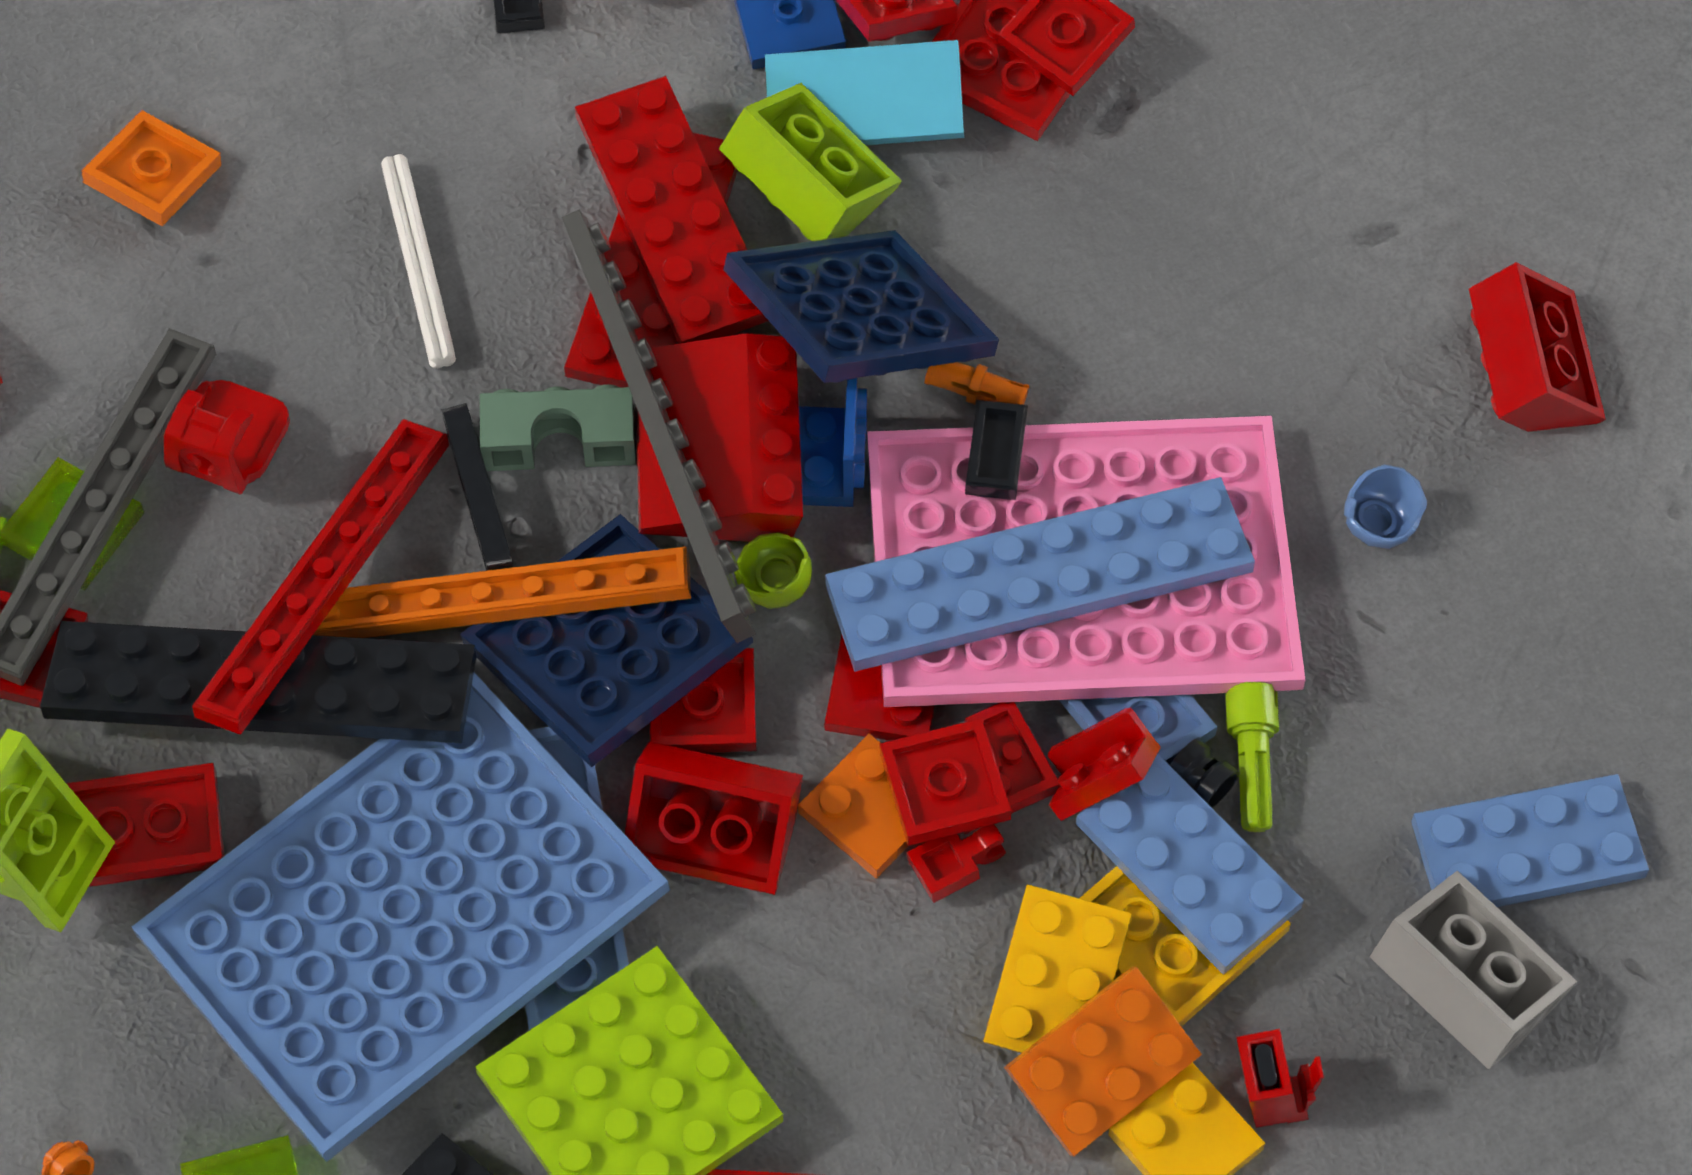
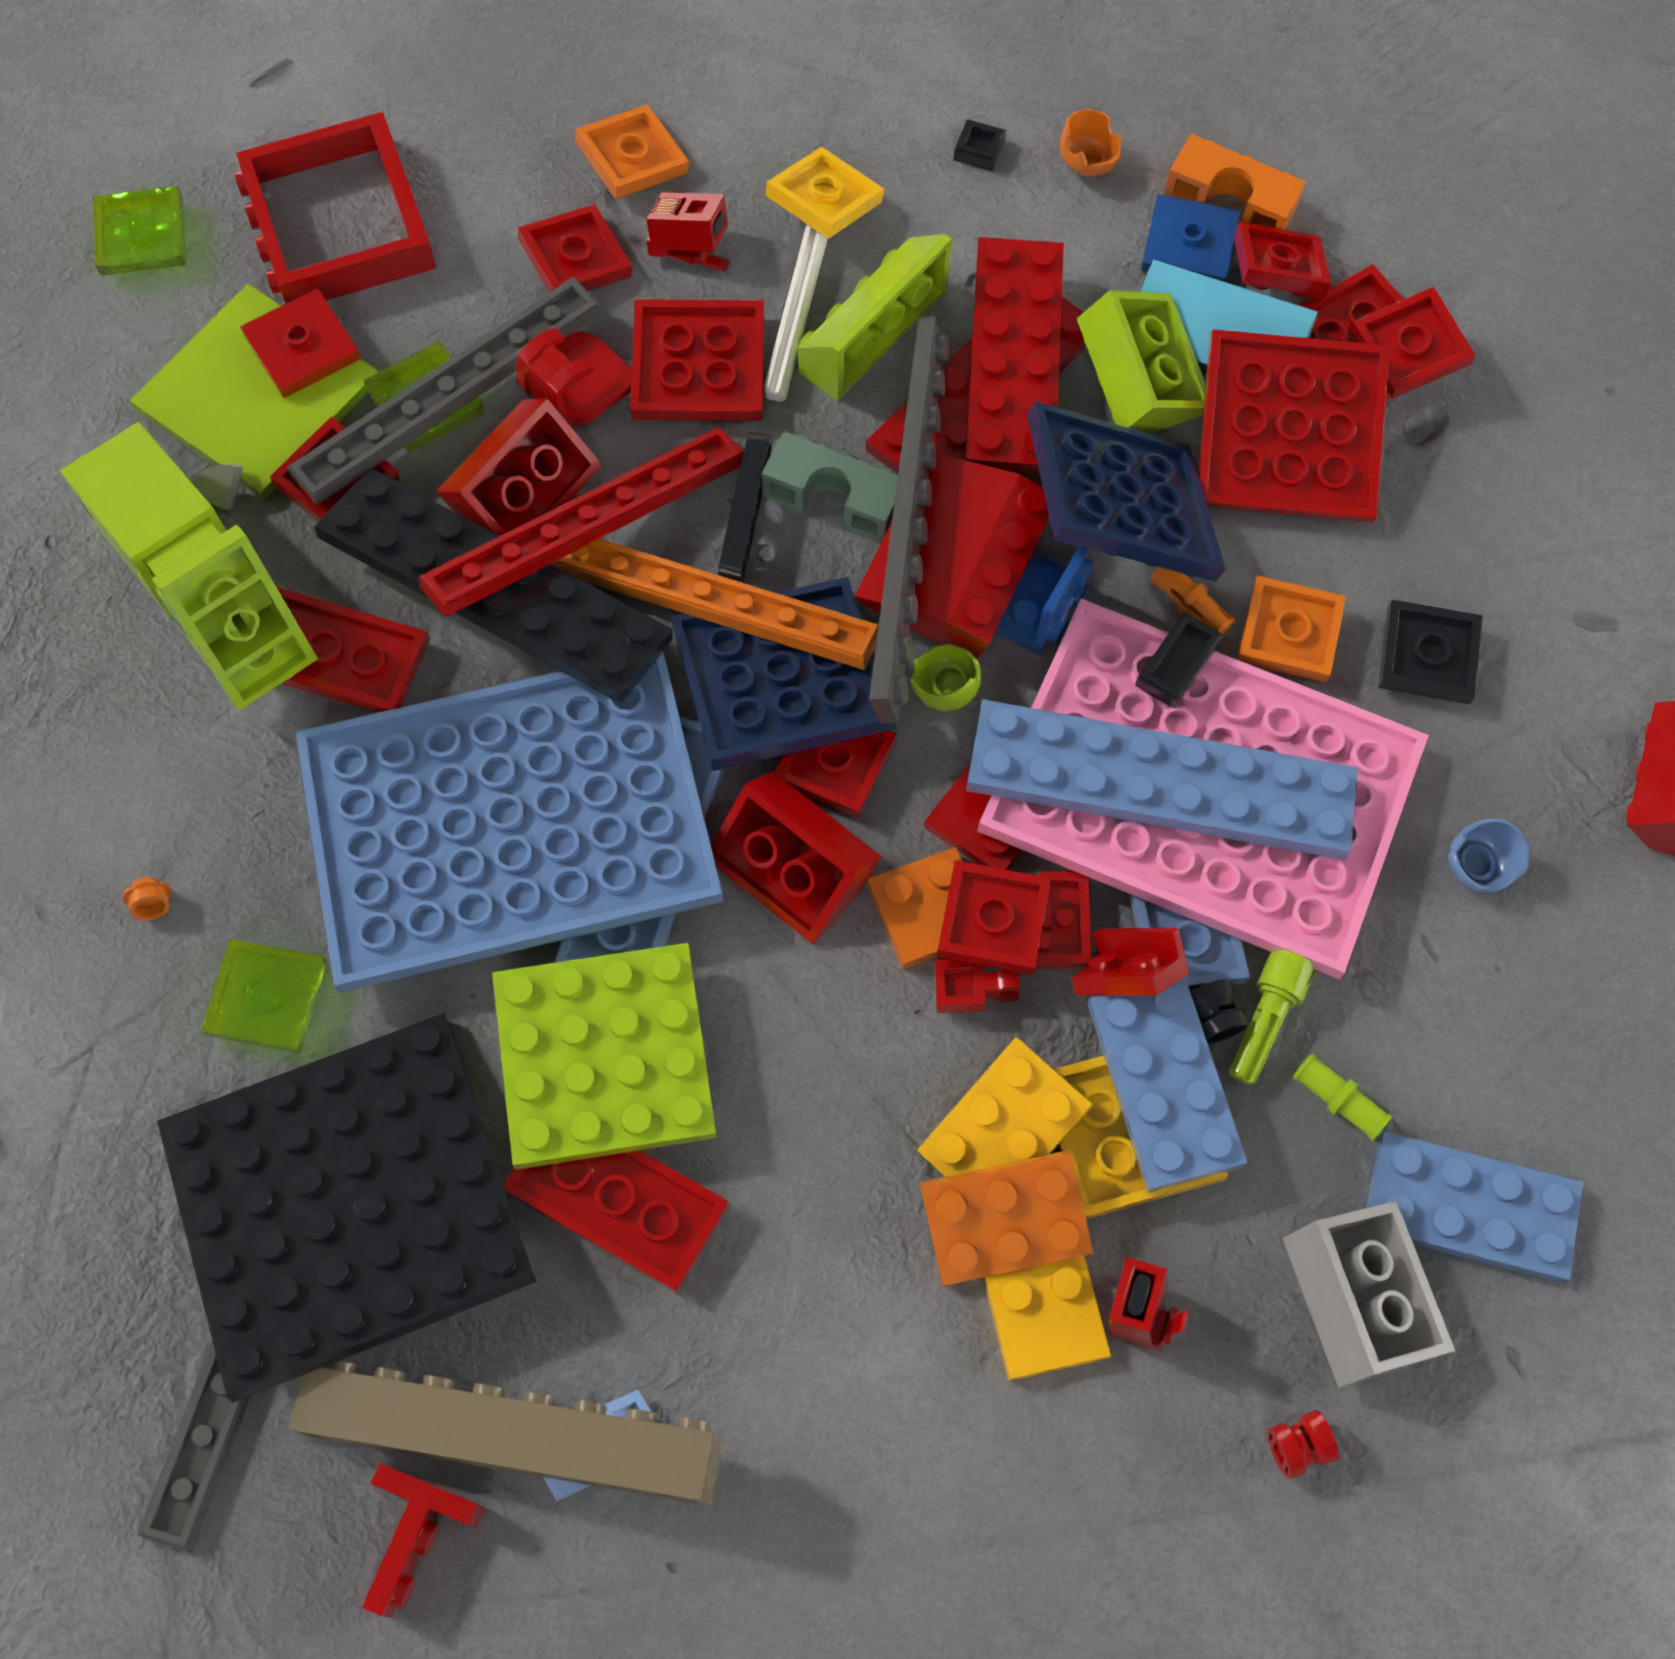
camera: 25 degrees right, 5 degrees up
(146, 298) = (577, 247): none -> red plate
(221, 554) = (520, 469): none -> red slope
(260, 224) = (688, 228): none -> red piece
(344, 358) = (697, 360): none -> red plate
(385, 126) = (824, 192): none -> yellow plate
(506, 232) = (875, 314): none -> lime slope
(990, 165) = (1293, 425): none -> red plate
(1088, 370) = (1291, 629): none -> orange plate
(1233, 333) = (1430, 651): none -> black plate
(1360, 799) = (1342, 1097): none -> lime pin
(1481, 1135) = (1302, 1444): none -> red wheel

